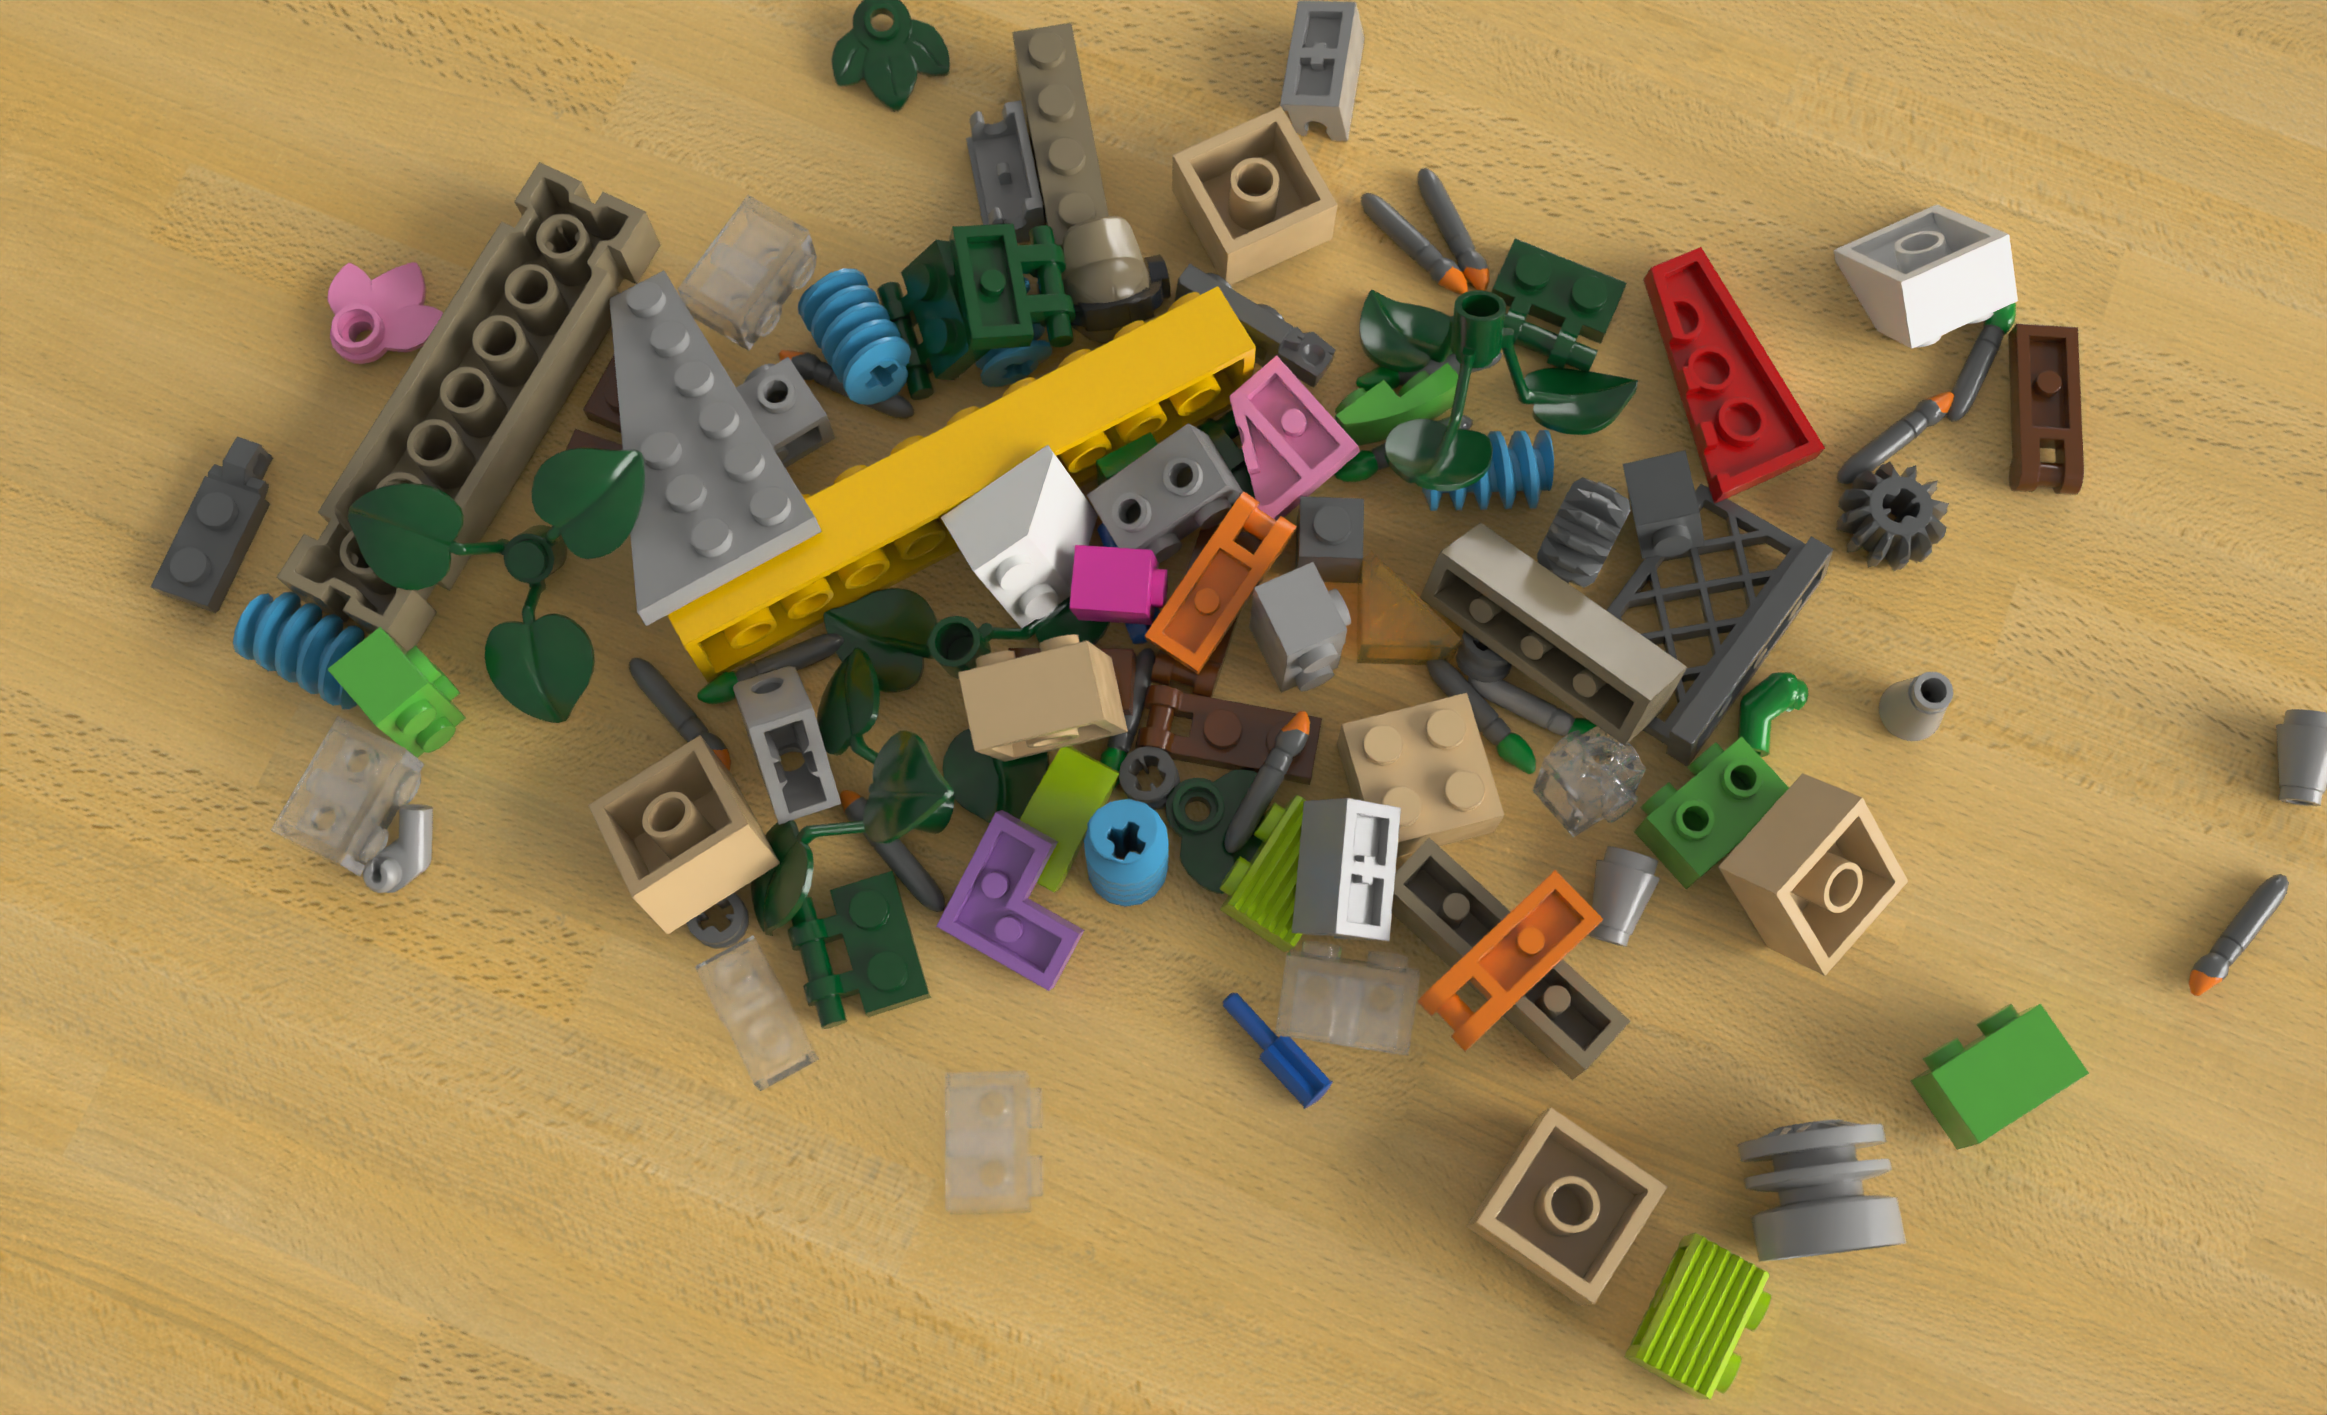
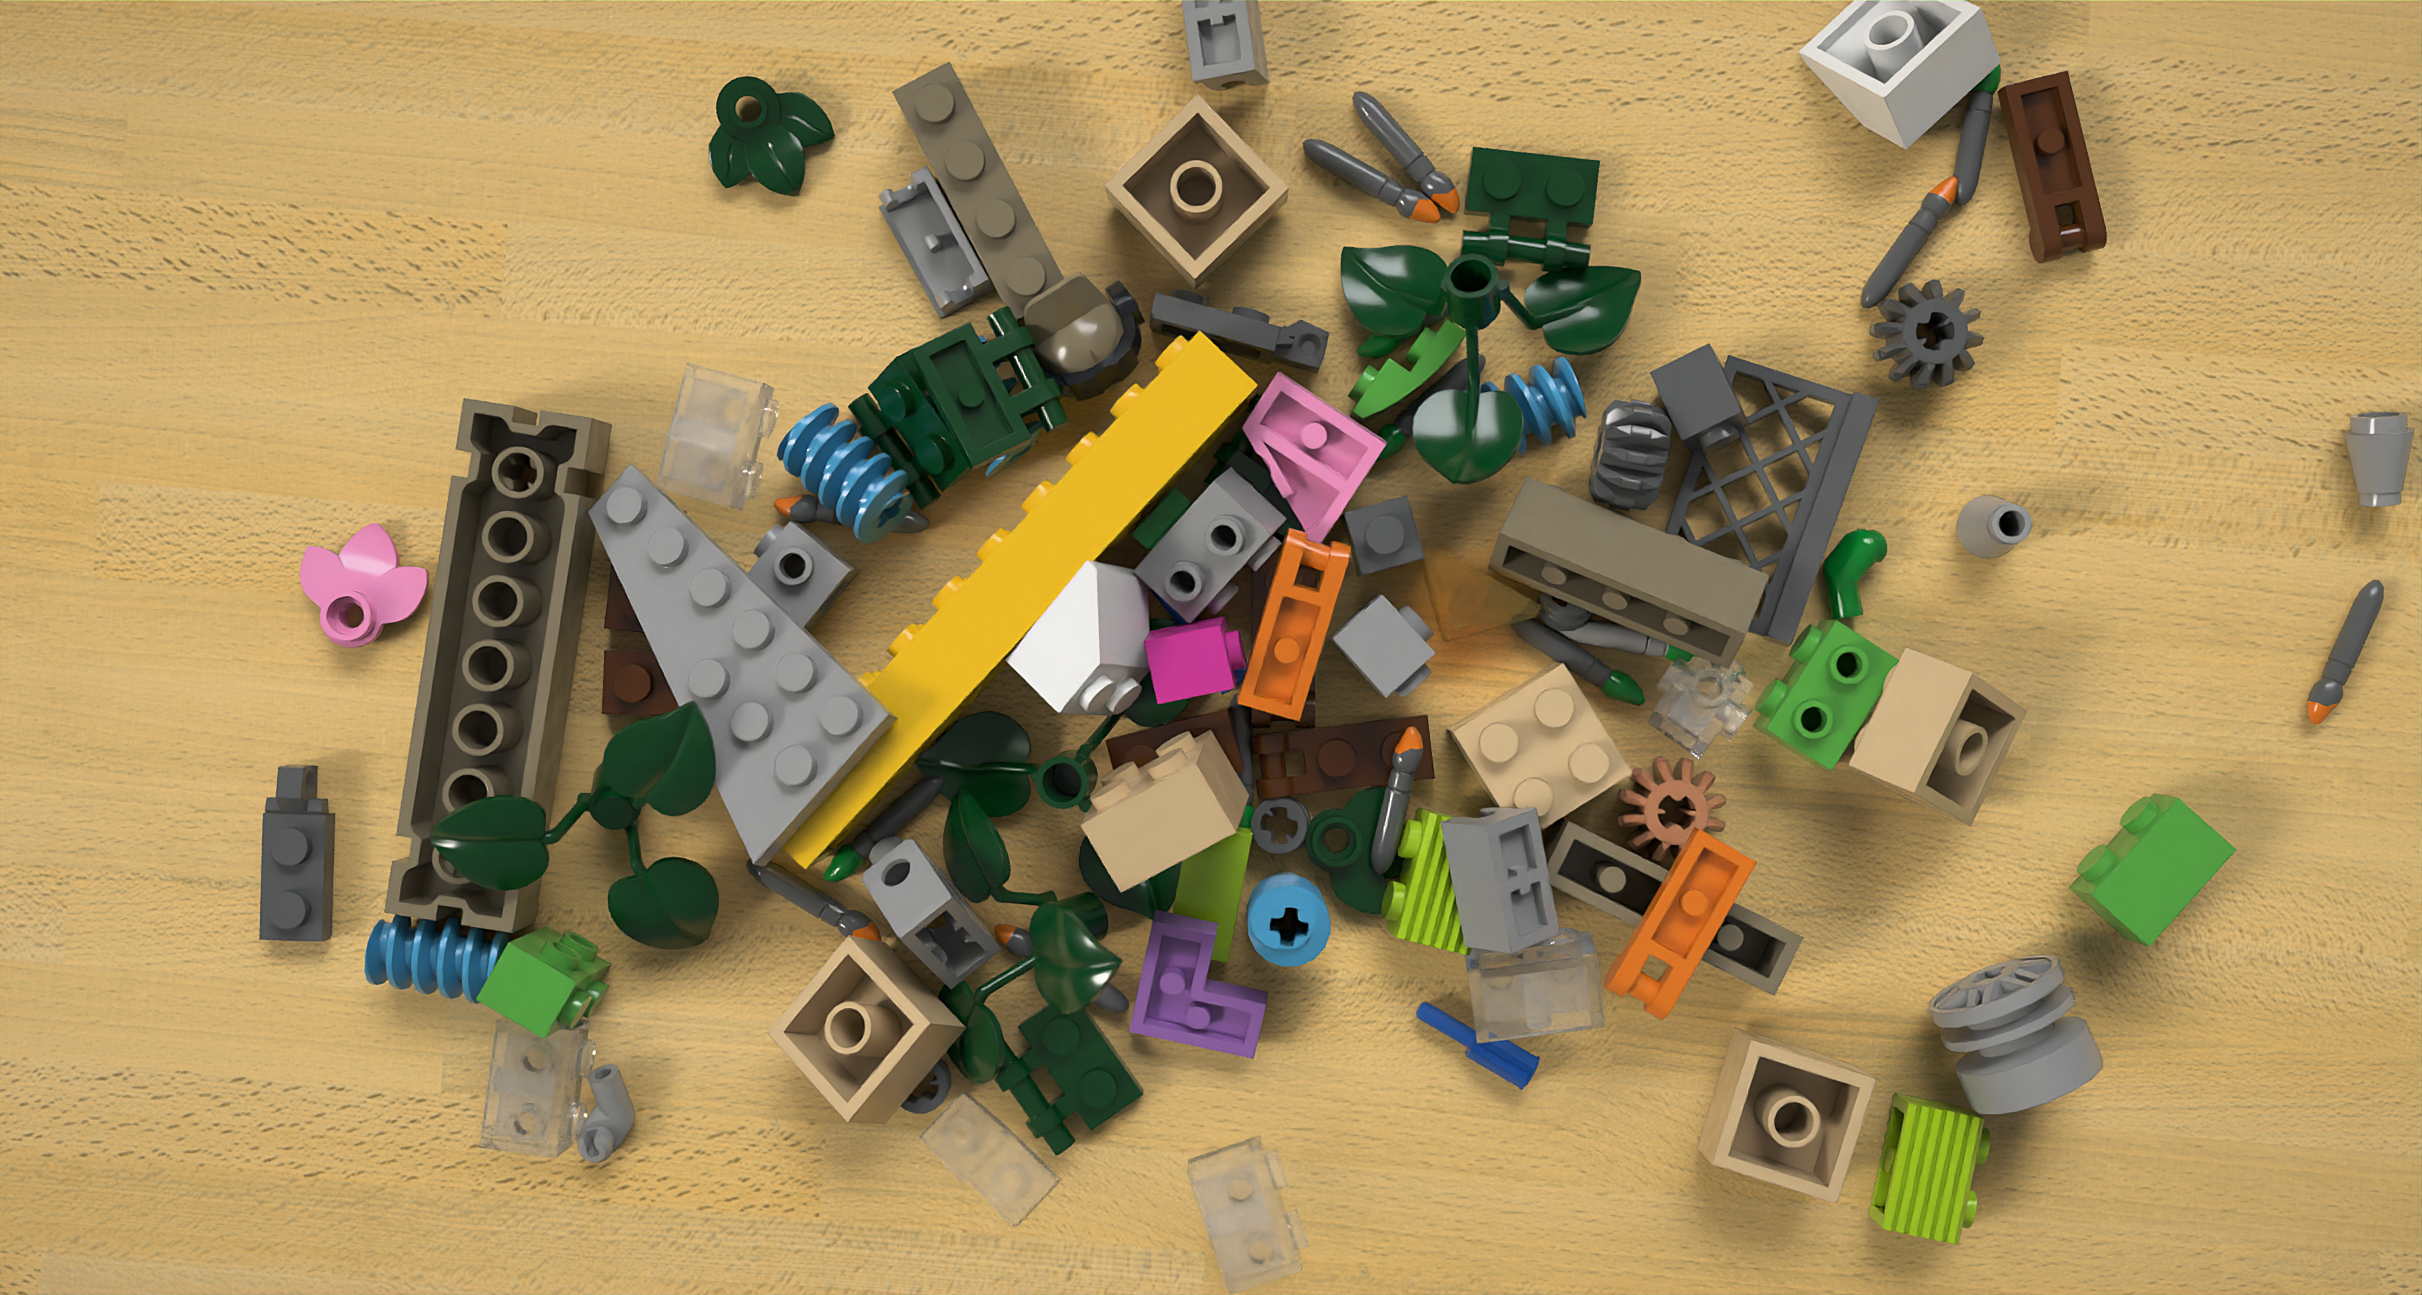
camera: 20 degrees left, 15 degrees up
(1529, 852) = (1674, 786): none -> nougat gear
(1621, 893) = (1758, 799): light grey cone -> none
(1728, 385) = (1732, 244): red wing -> none

